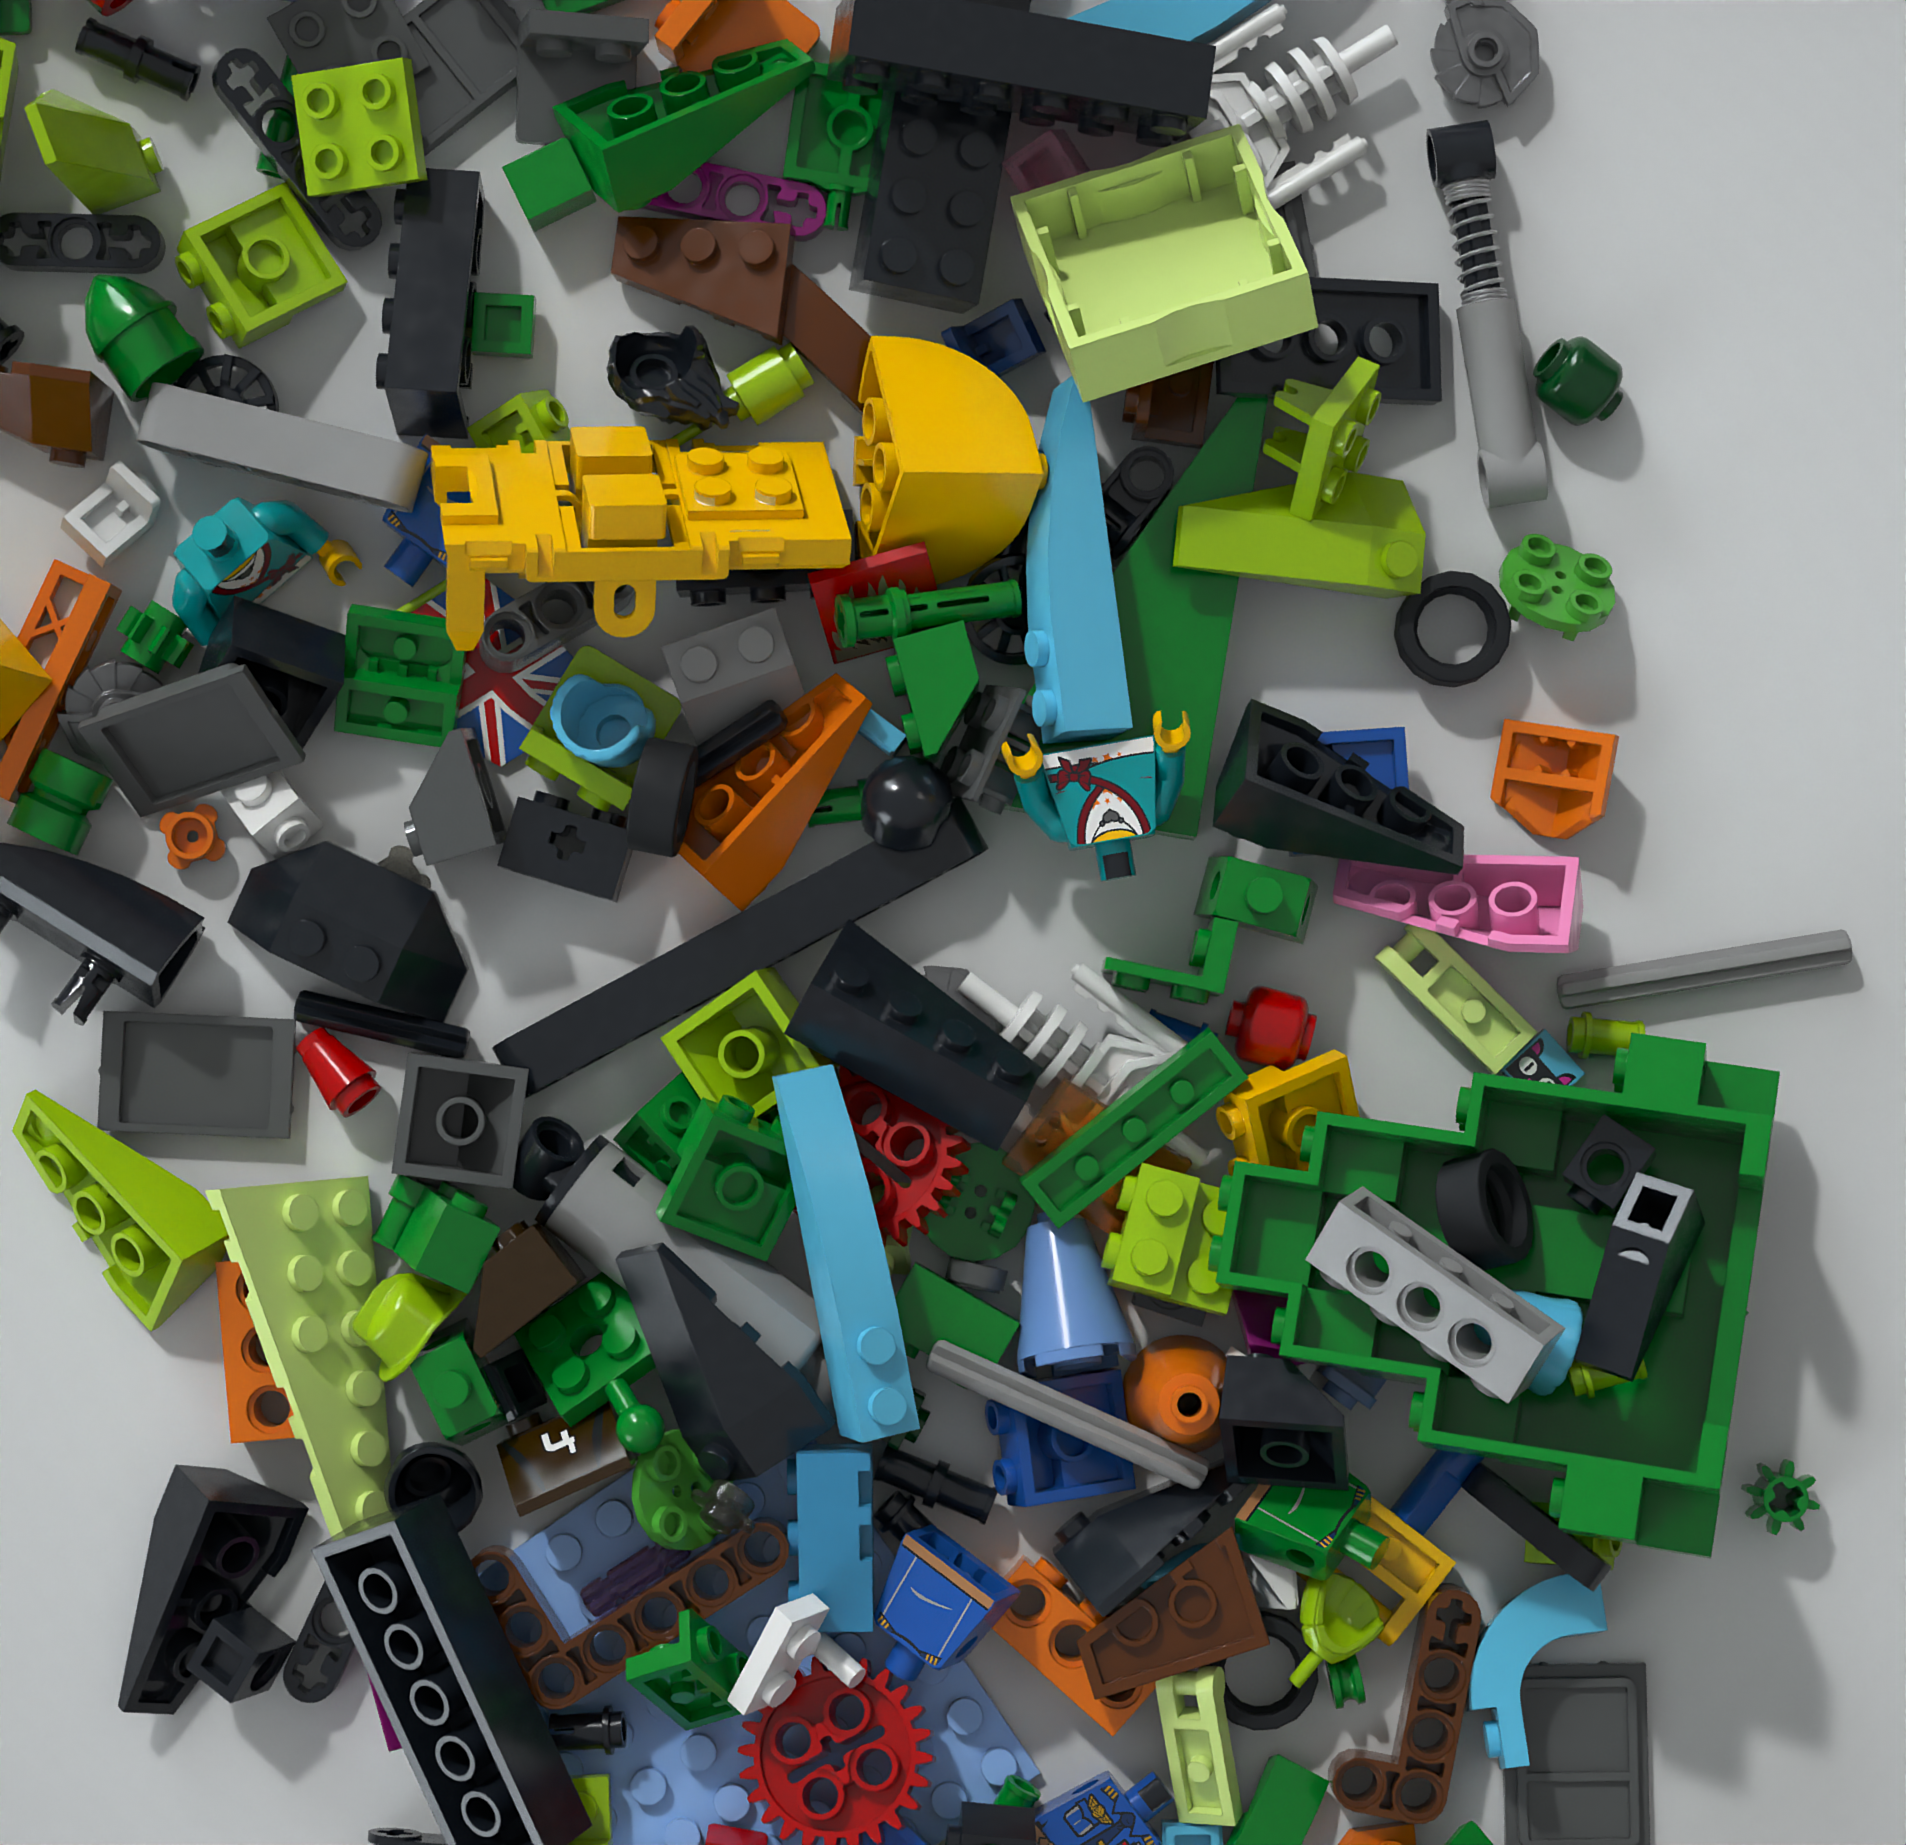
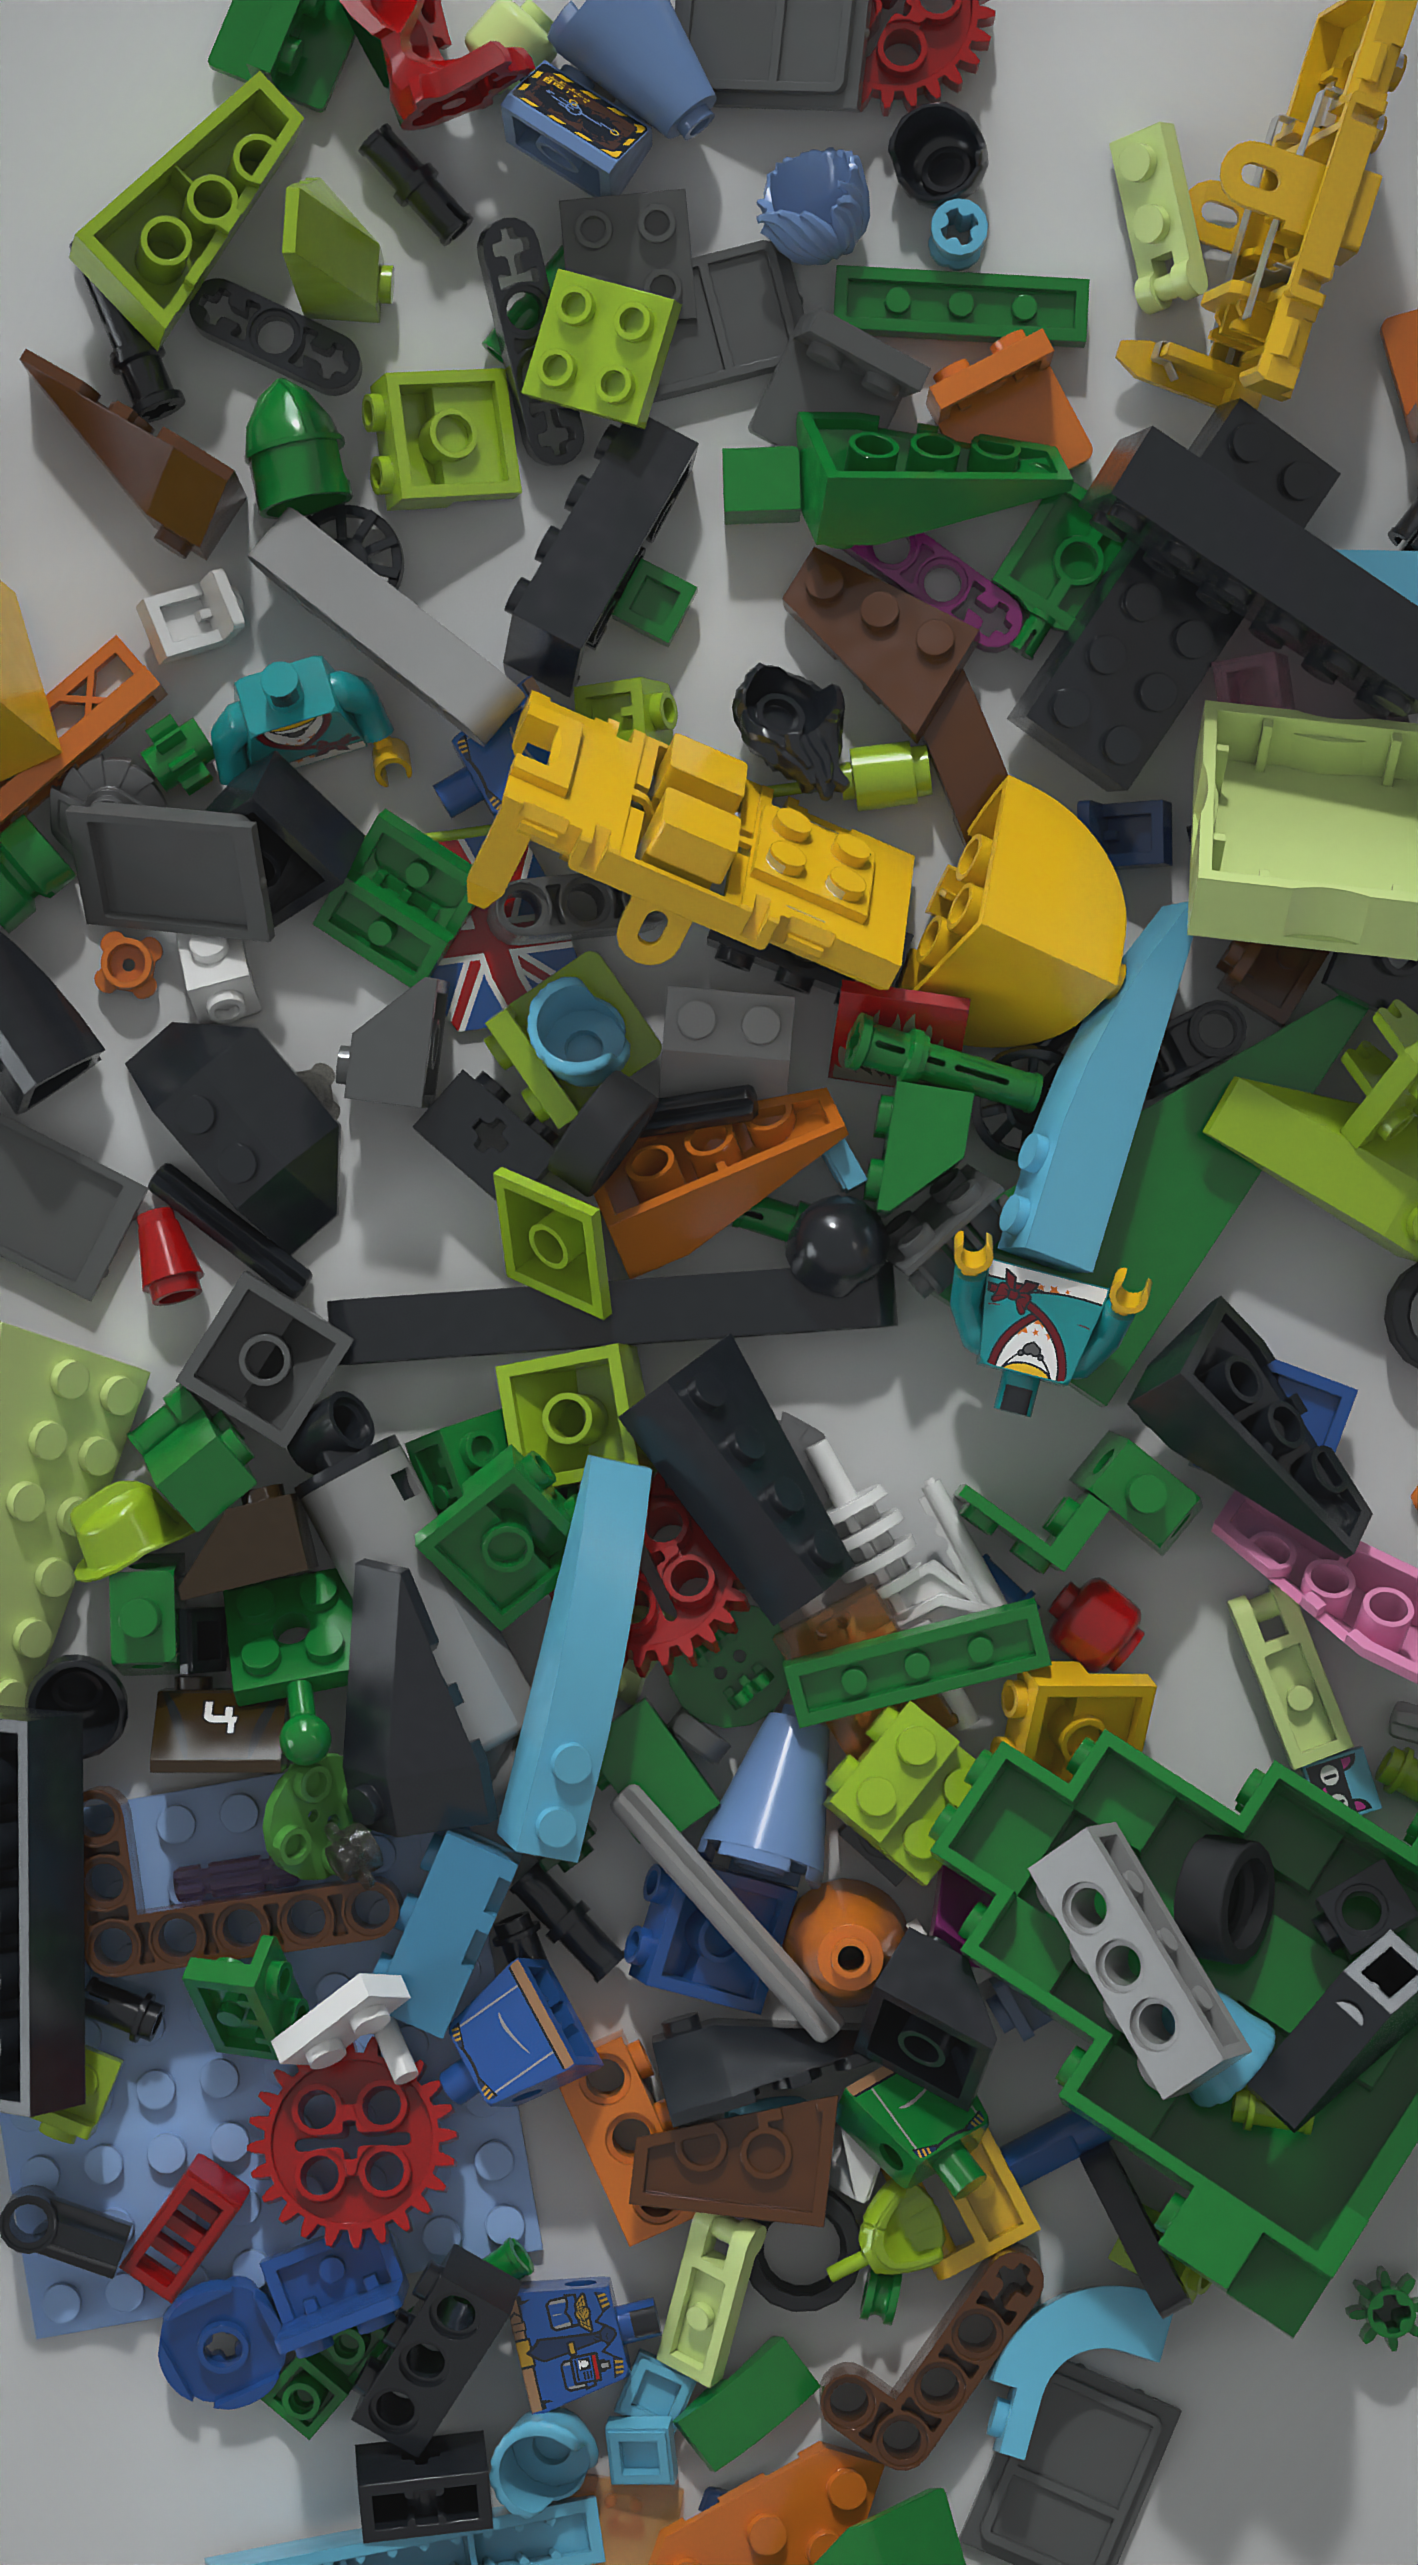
camera: 25 degrees right, 0 degrees up
(661, 909) = (553, 1242): none -> lime slope

